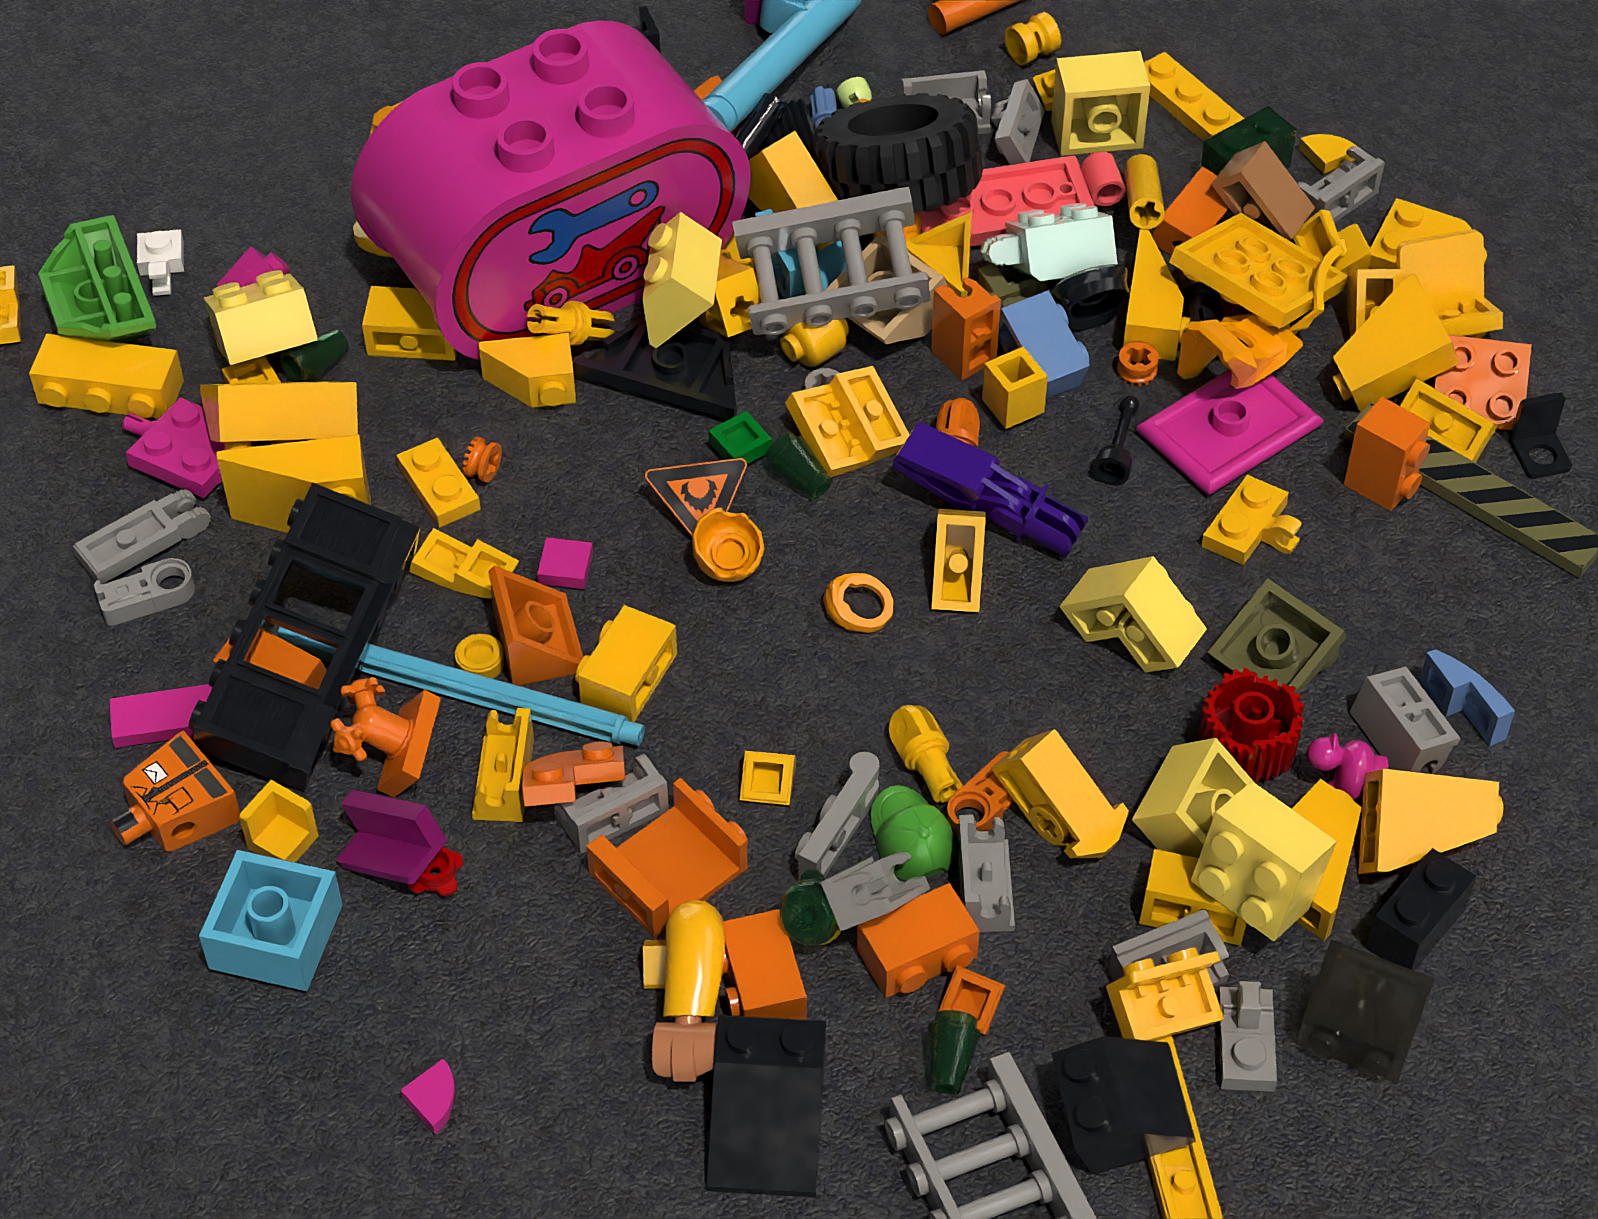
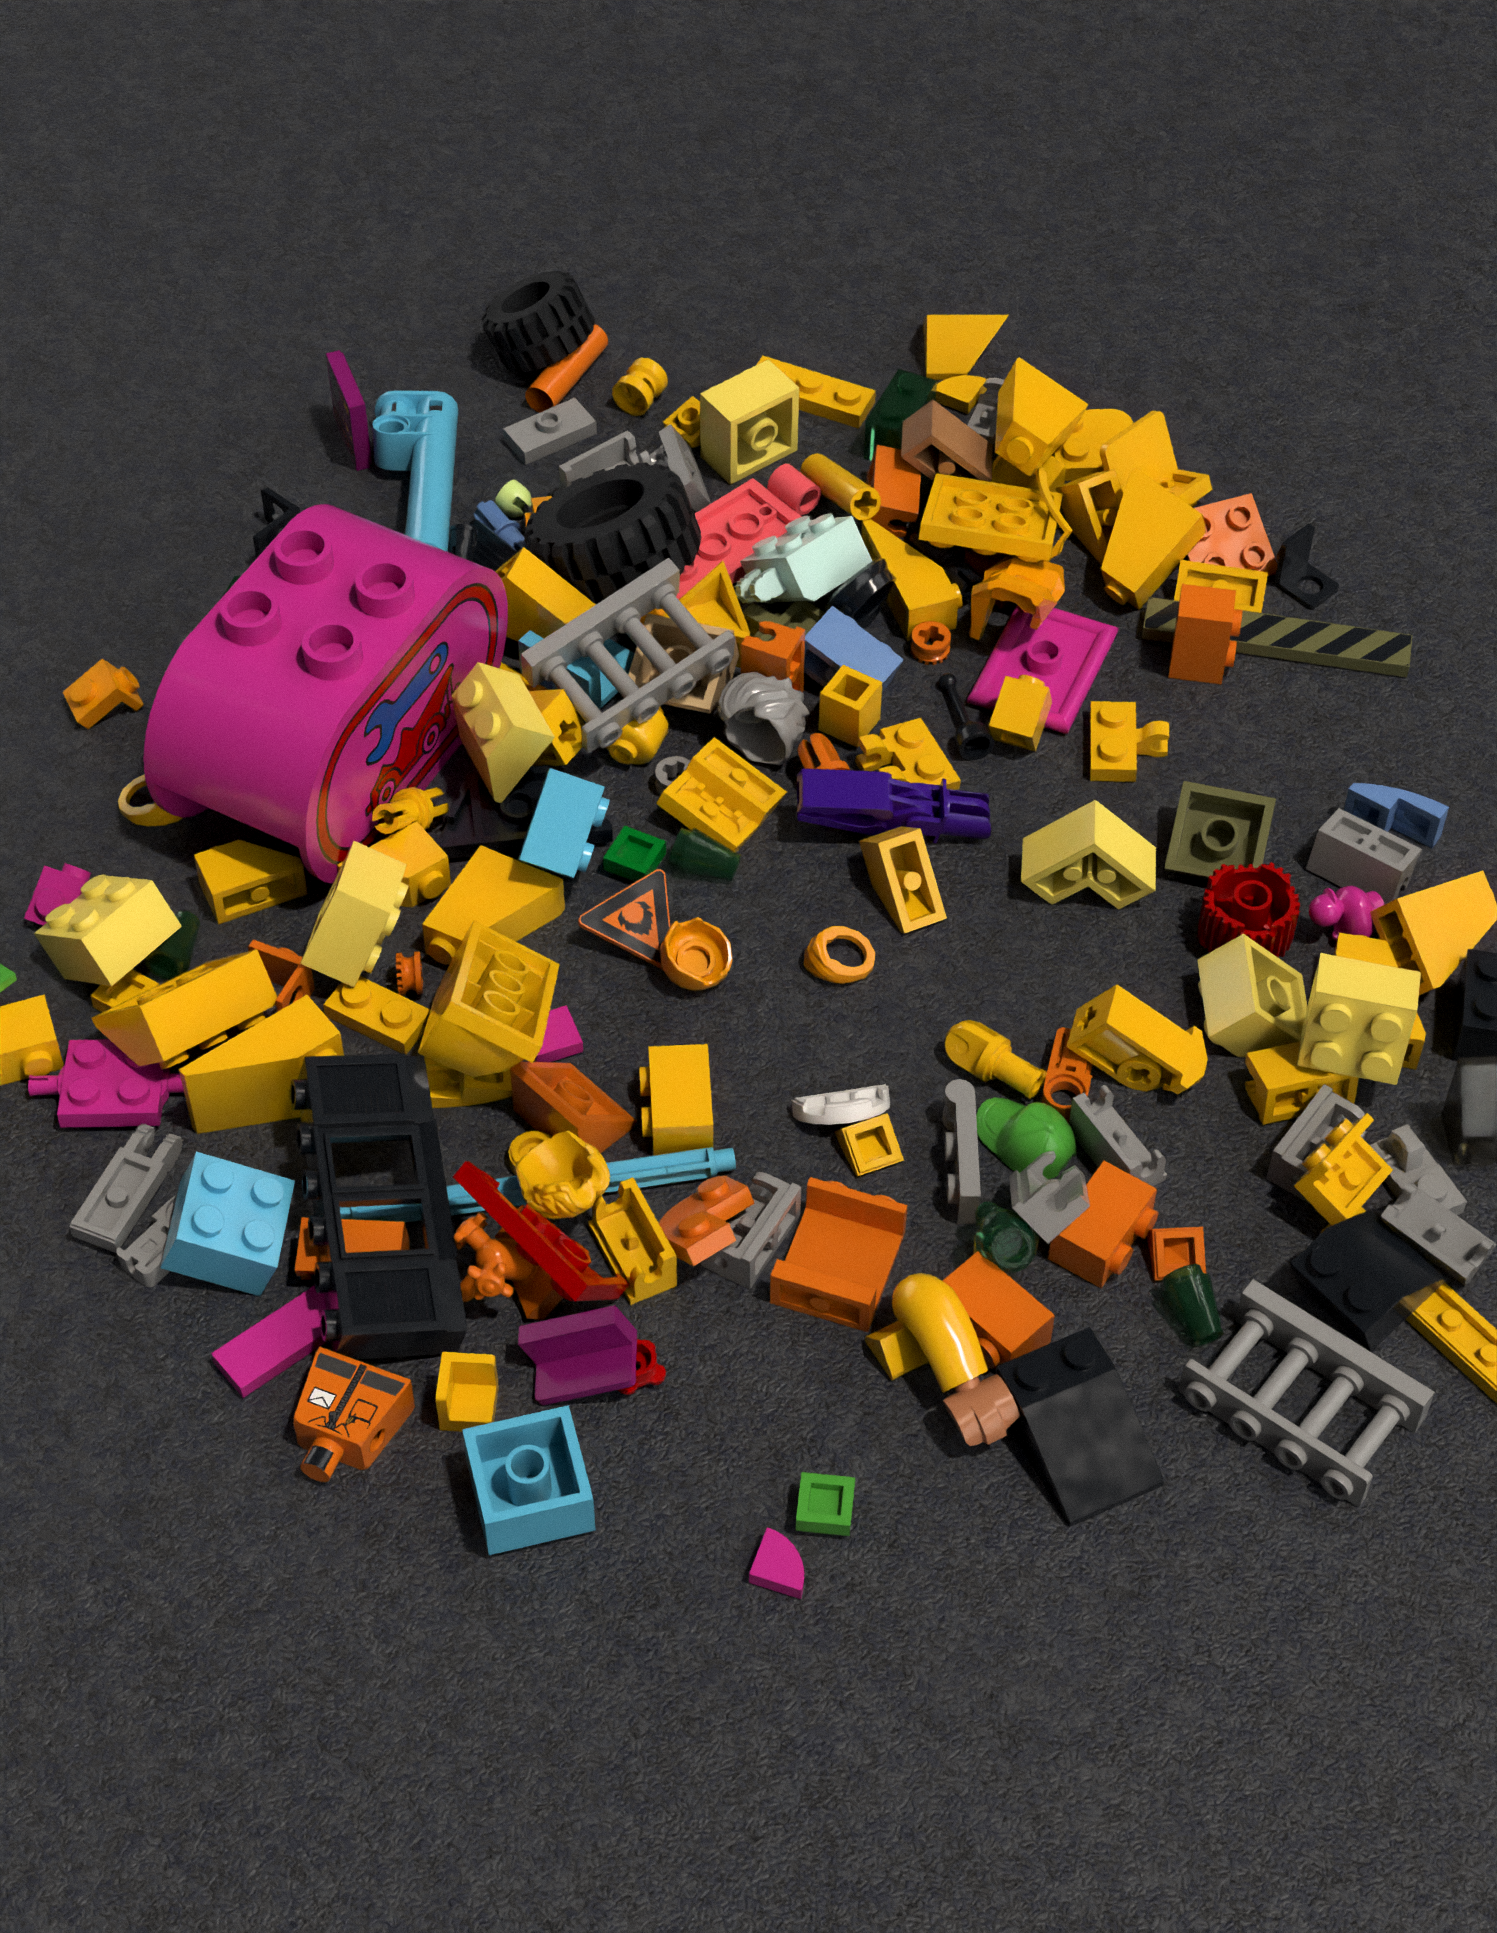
camera: 30 degrees left, 0 degrees up
(184, 597) = (228, 1224): none -> medium azure brick
(387, 417) = (285, 970): none -> orange bracket
(412, 732) = (541, 1242): none -> red wing
(455, 387) = (356, 915): none -> light yellow brick
(468, 680) = (562, 1176): none -> yellow hair
(505, 1063) = (825, 1504): none -> bright green plate
(509, 506) = (490, 1005): none -> yellow windscreen
(583, 434) = (497, 894): none -> yellow slope
(676, 383) = (562, 824): none -> medium azure brick
(768, 733) = (842, 1106): none -> white tile
(929, 364) = (762, 716): none -> light grey hair
(931, 49) = (550, 431): none -> light grey plate
(1050, 452) = (911, 751): none -> yellow plate
(1168, 456) = (1021, 712): none -> yellow brick
(1221, 1095) = (1438, 1233): none -> light grey hinge
(1350, 104) = (956, 342): none -> yellow slope
(1360, 197) = (1033, 417): none -> yellow slope

